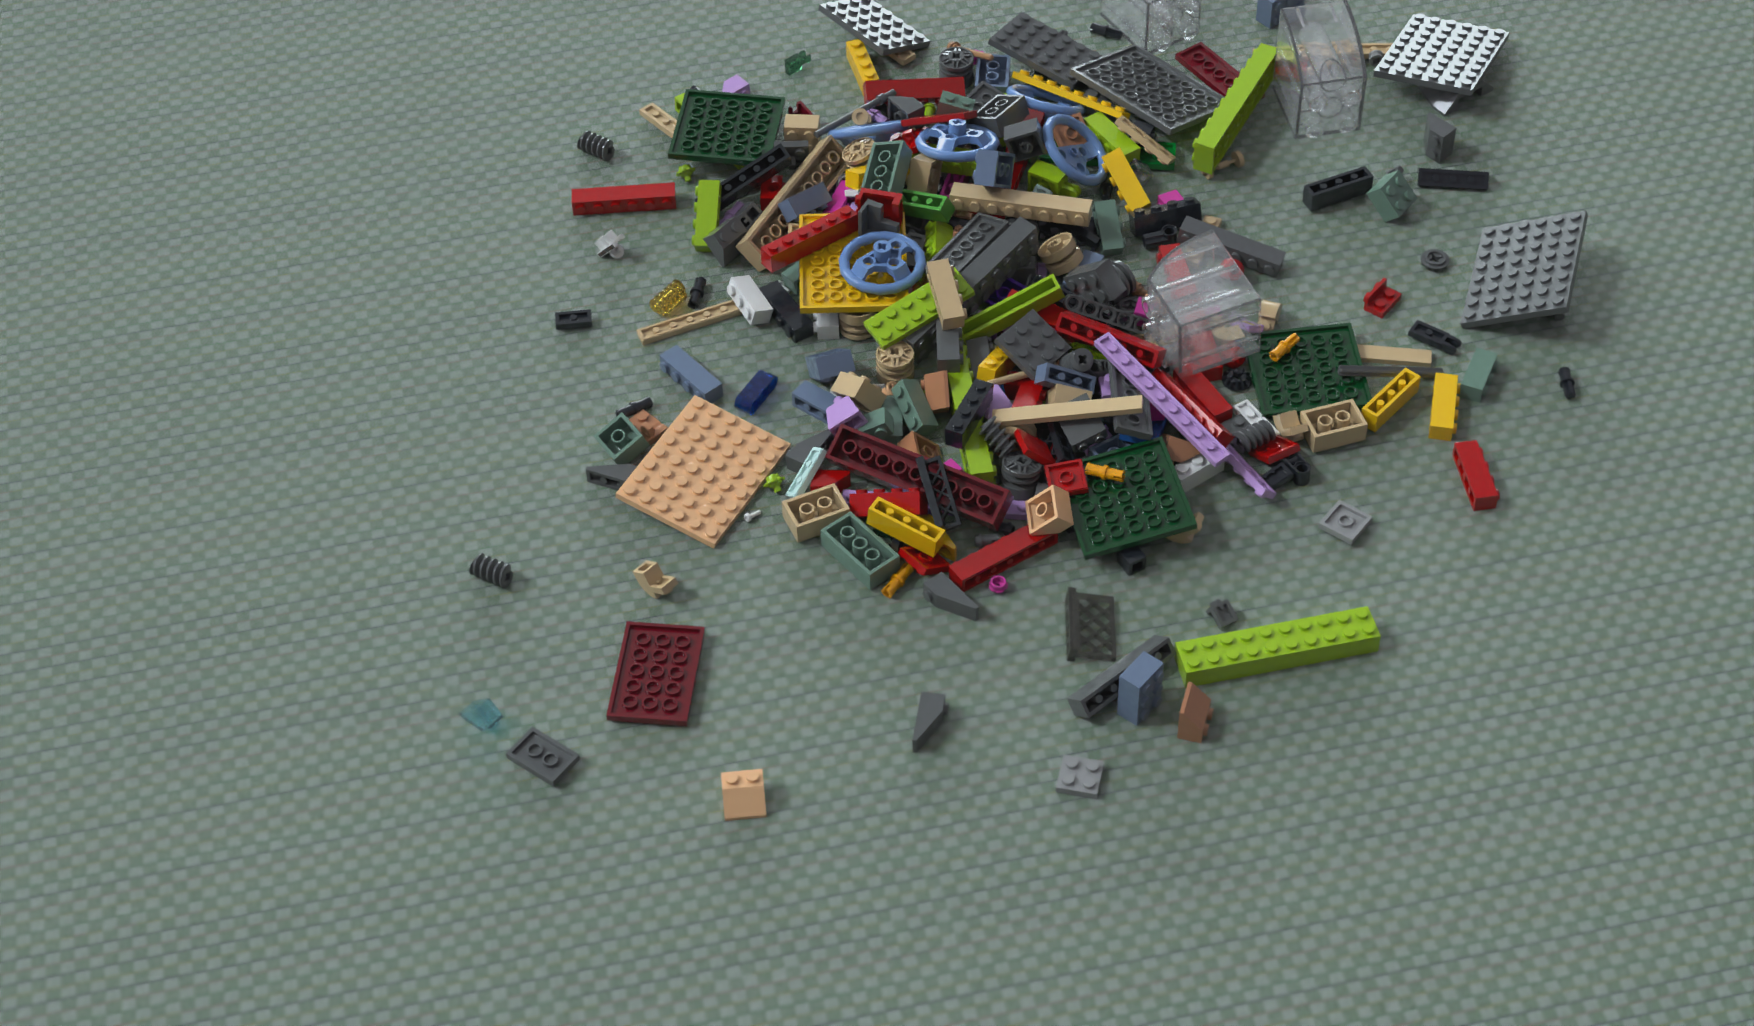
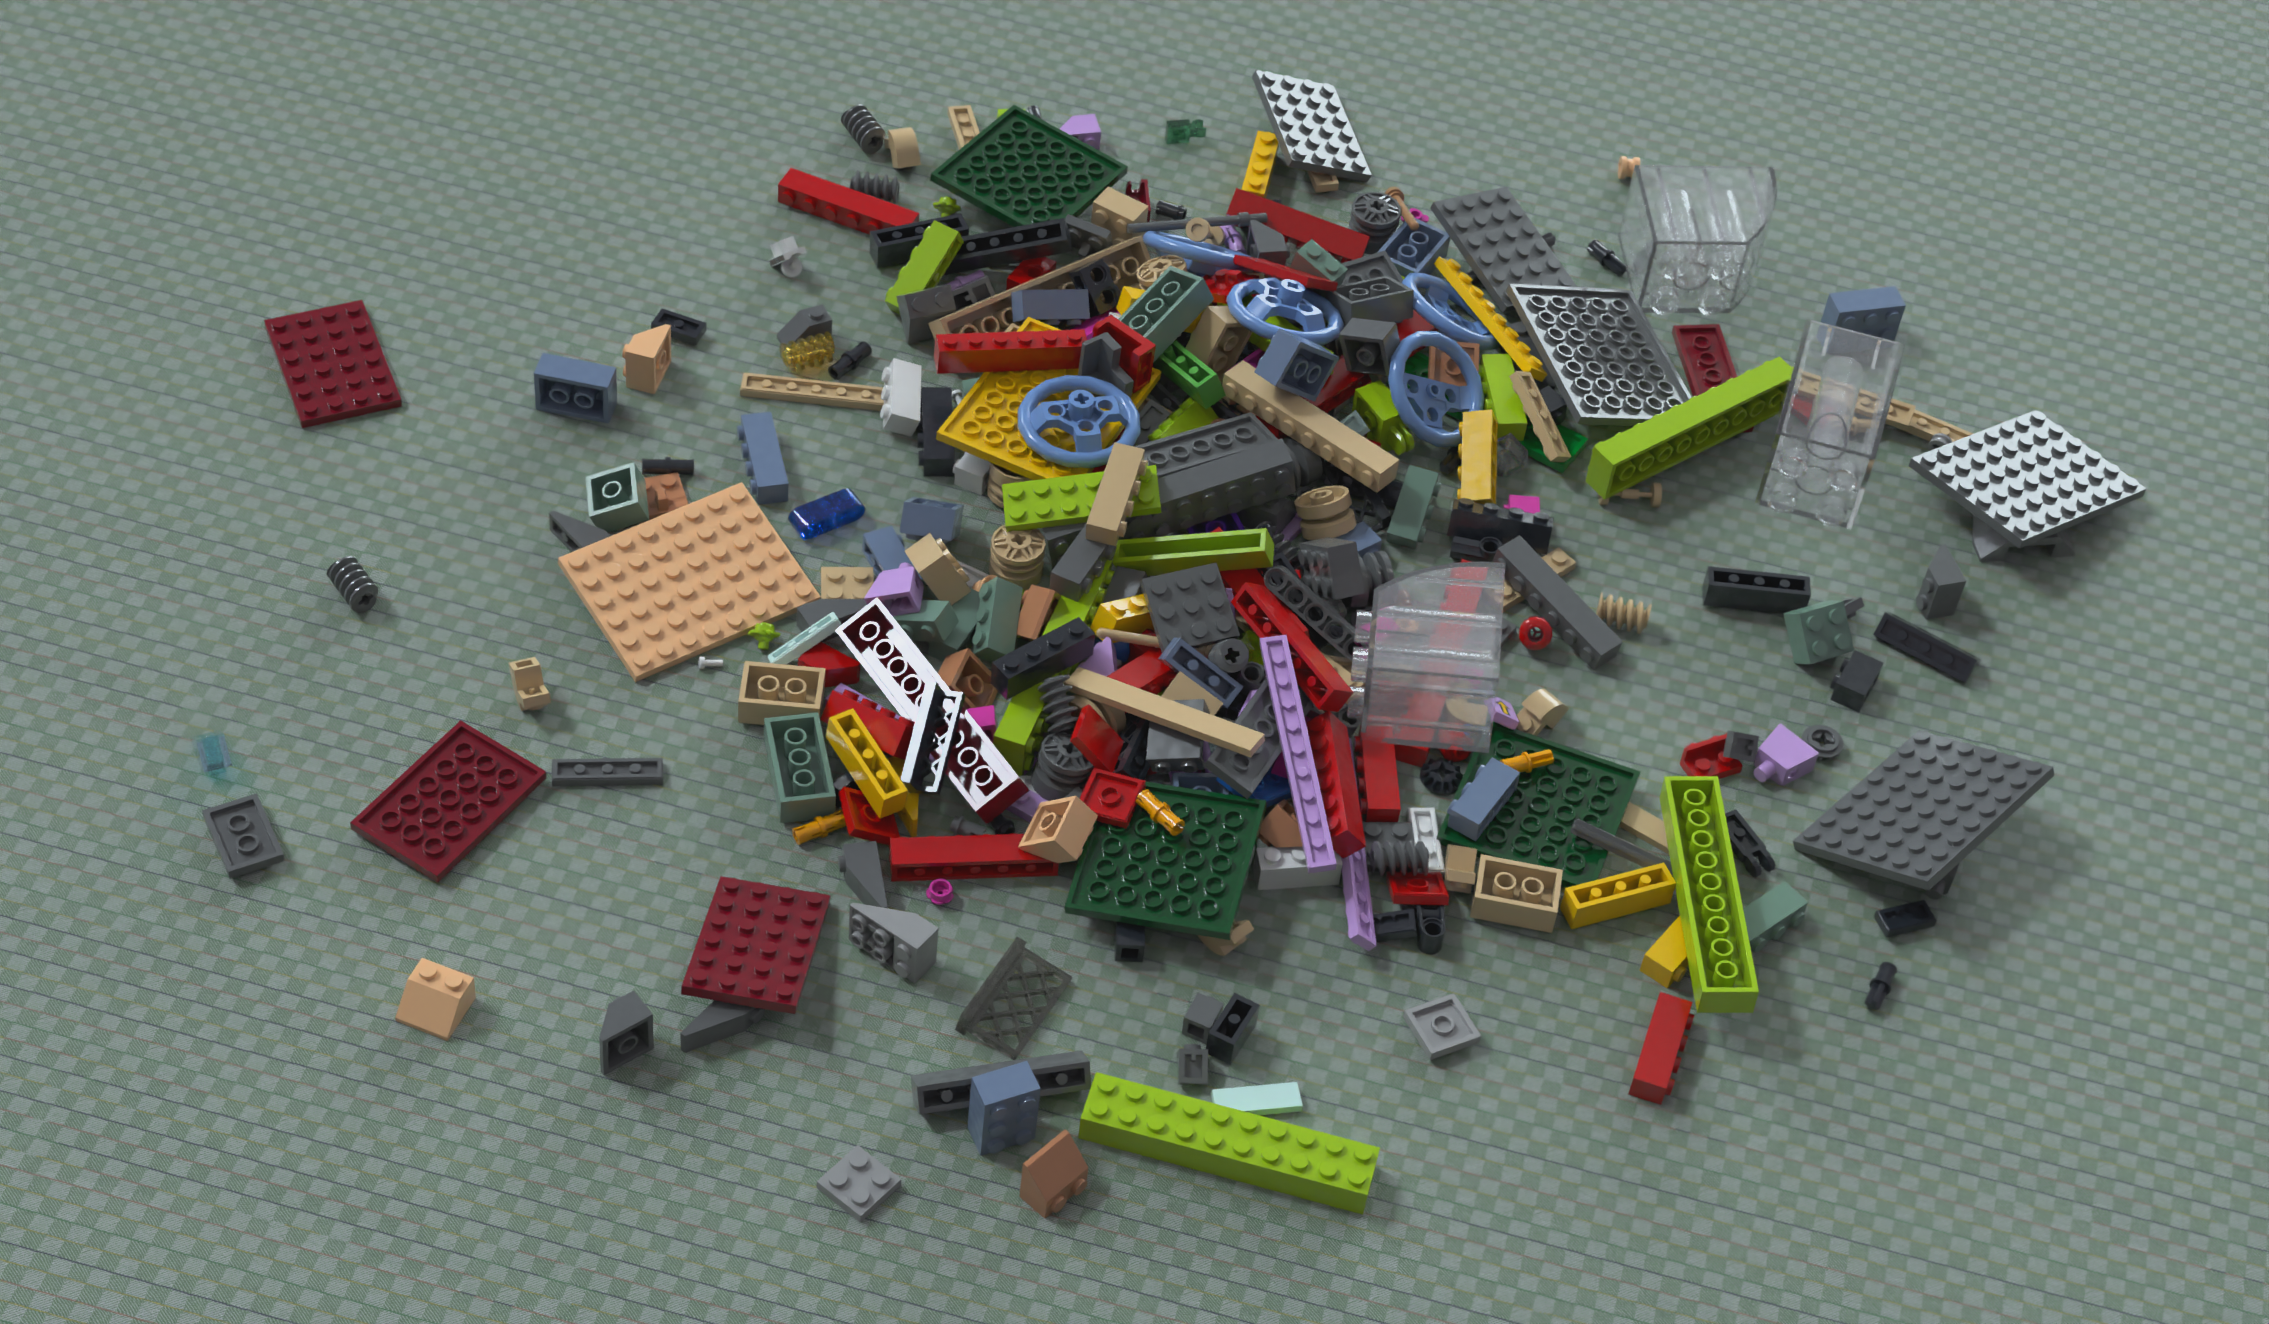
camera: 20 degrees right, 0 degrees up
(365, 442) = (332, 363): none -> dark red plate
(542, 385) = (575, 388): none -> sand blue brick
(573, 348) = (647, 359): none -> light nougat slope
(632, 145) = (903, 147): none -> tan brick
(633, 177) = (876, 187): none -> dark grey piece
(655, 283) = (806, 323): none -> dark grey slope
(680, 203) = (896, 243): none -> black brick
(740, 610) = (607, 772): none -> dark grey tile
(799, 428) = (845, 582): none -> tan plate
(820, 172) = (1102, 284): none -> black brick
(826, 114) = (1171, 210): none -> black pin
(878, 755) = (625, 1032): none -> dark grey slope
(916, 667) = (756, 945): none -> dark red plate
(996, 623) = (895, 938): none -> light grey slope
(1207, 583) = (1201, 1017): none -> dark grey brick
(1231, 579) = (1232, 1028): none -> black brick
(1272, 234) = (1622, 613): none -> tan piece
(1274, 613) = (1261, 1098): none -> light aqua tile
(1275, 379) = (1482, 798): none -> sand blue brick
(1396, 281) = (1741, 746): none -> dark grey bracket
(1421, 277) = (1784, 757): none -> lavender torso
(1429, 215) = (1856, 680): none -> black brick
(1445, 373) = (1708, 895): none -> lime brick
(1553, 338) = (1905, 918): none -> black plate

